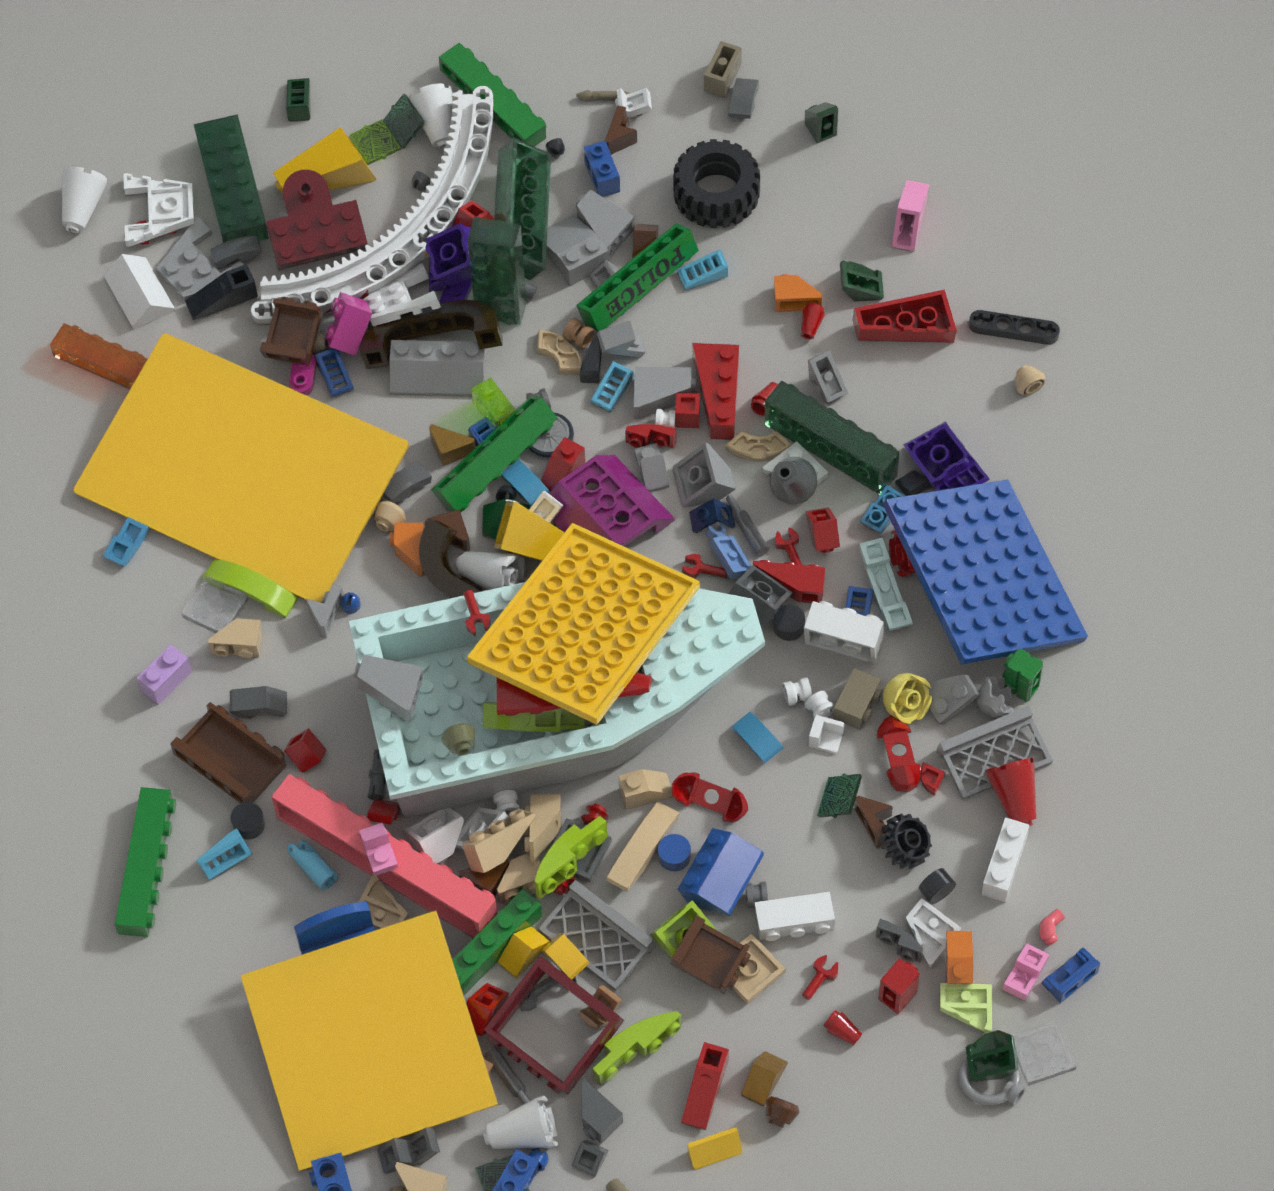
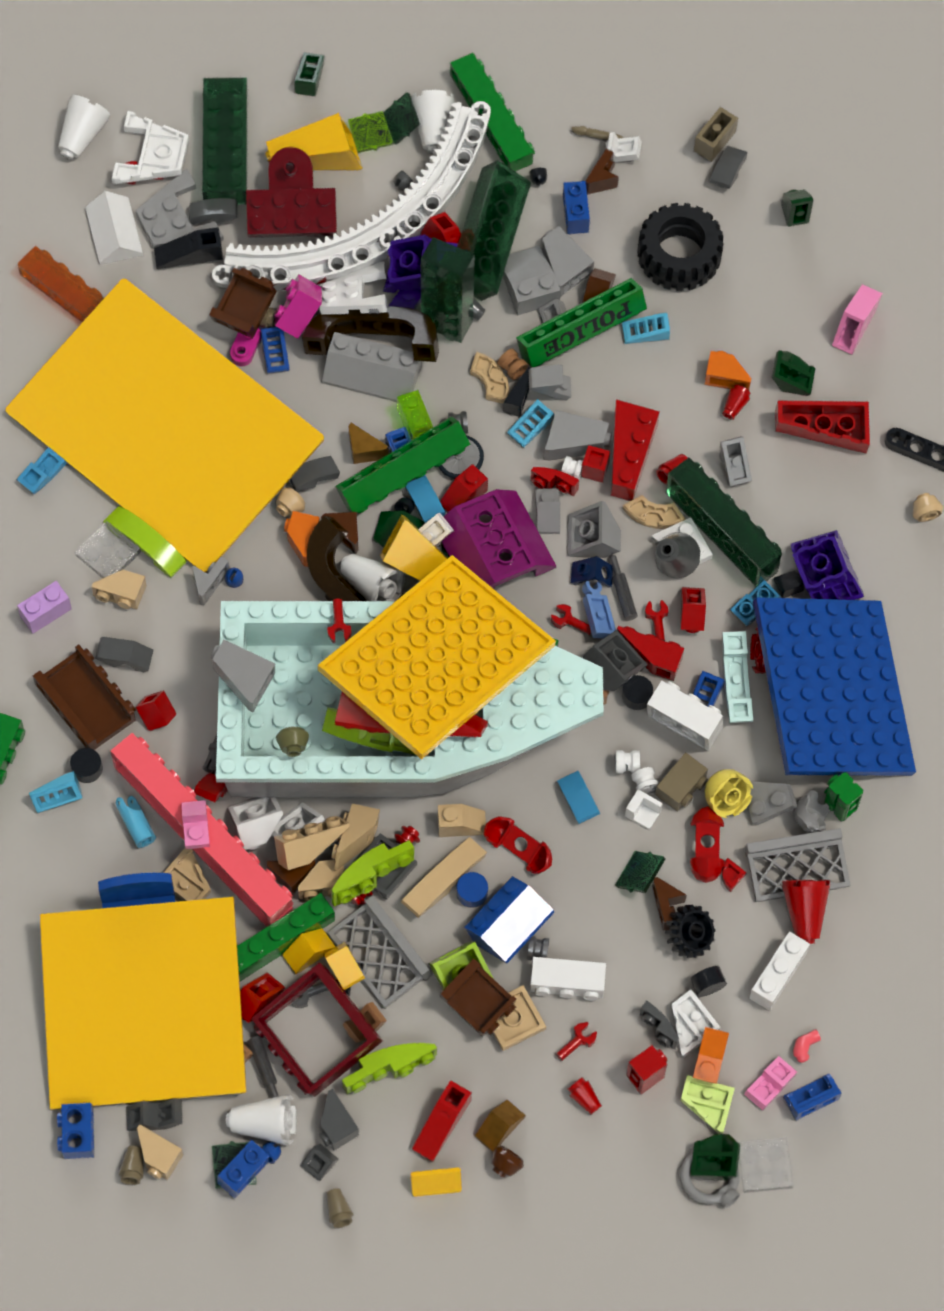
camera: 10 degrees right, 5 degrees up
(506, 801) = (328, 805): white wheel -> none

